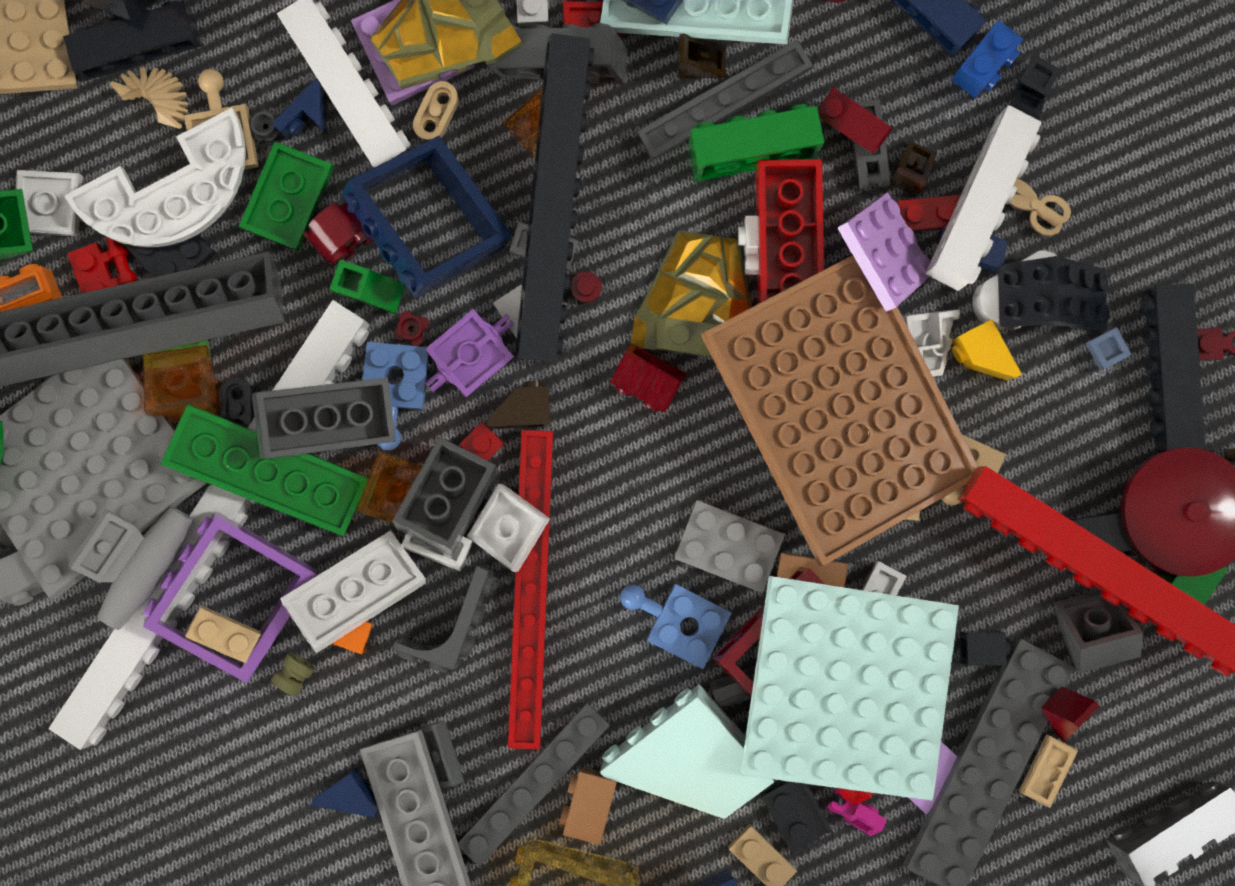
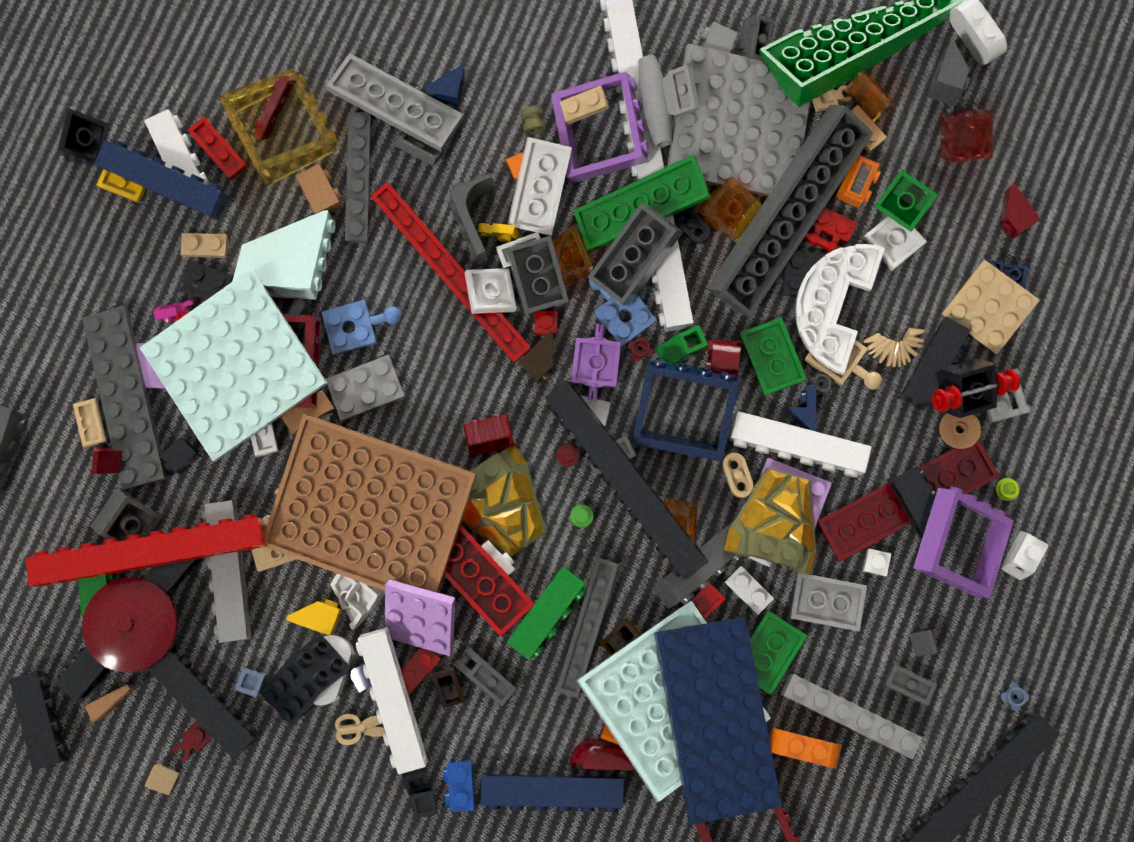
camera: 135 degrees right, 5 degrees down
(437, 578) = (502, 232): none -> yellow plate
(628, 214) = (581, 516): none -> bright green plate
(853, 120) = (503, 676): dark red slope -> none
(1044, 471) = (228, 582): none -> light grey brick

